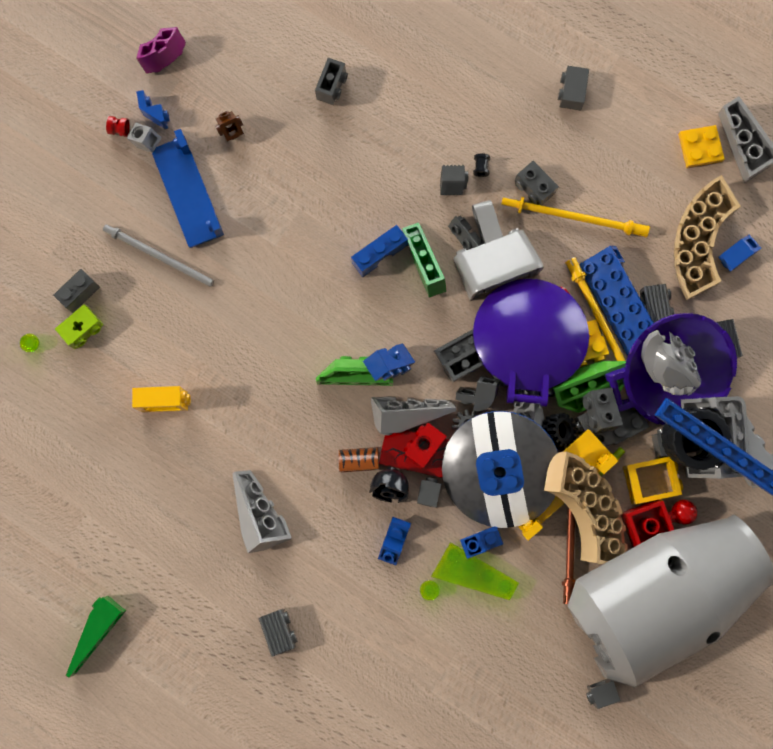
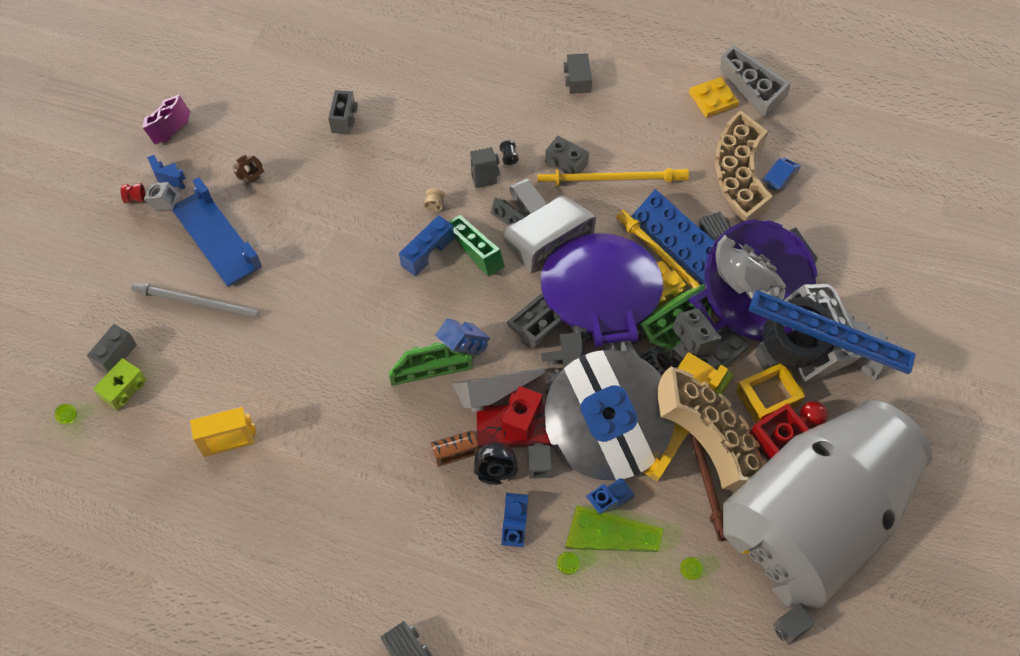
camera: 15 degrees left, 20 degrees down
(258, 520) = (356, 534): light grey wedge -> none
(397, 202) = (434, 200): none -> tan wheel
(532, 621) = (691, 568): none -> clear neon green plate

